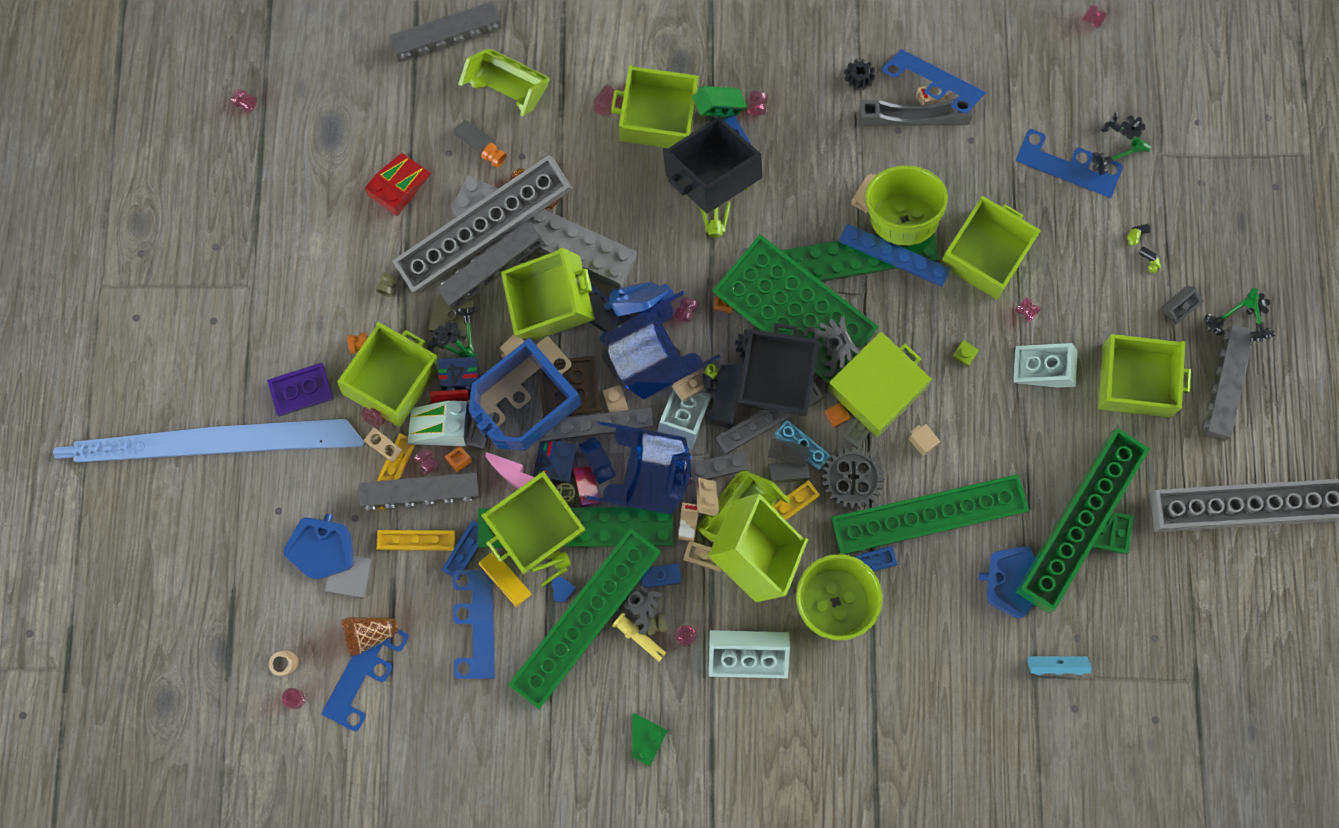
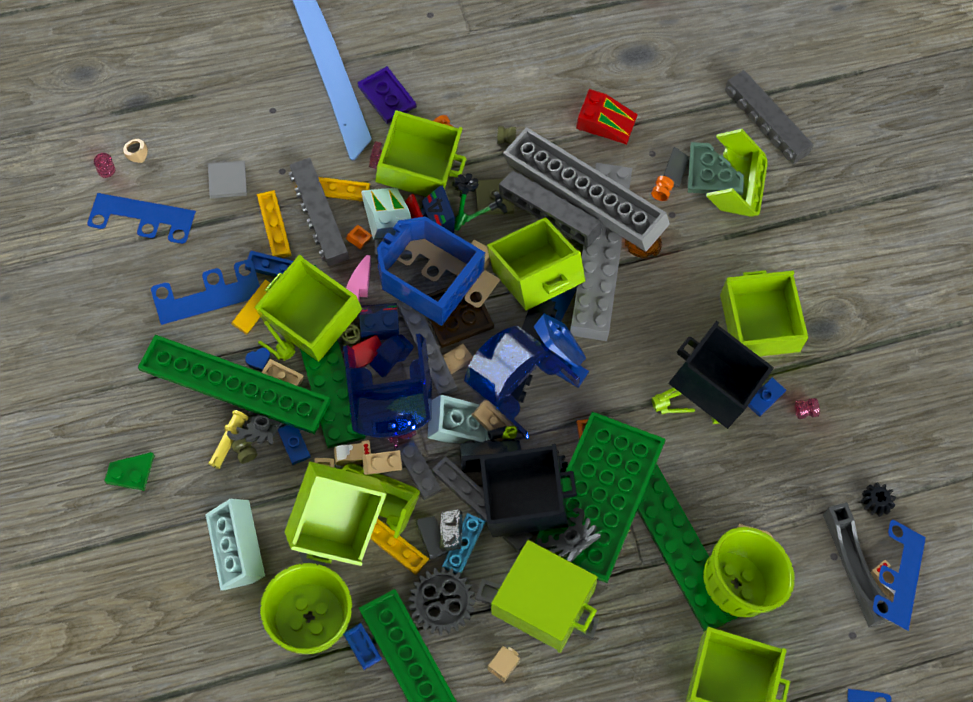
camera: 70 degrees right, 10 degrees down
(320, 547) = (245, 149): blue animal -> none
(367, 632) = (175, 204): clear orange cone -> none
(383, 445) = (352, 172): tan leg -> none
(426, 461) = (348, 211): clear pink wheel -> none
(490, 104) = (711, 171): none -> sand green plate
(586, 570) = (282, 372): none -> tan plate
(603, 101) = (753, 264): clear pink brick -> none
(685, 639) = (240, 483): clear pink wheel -> none
(686, 309) = (563, 396): clear pink wheel -> none
(719, 101) = (791, 366): green brick -> none
(837, 415) = (502, 568): orange plate -> none
(894, 255) = (692, 582): blue plate -> none
(965, 353) = (613, 686): lime plate -> none

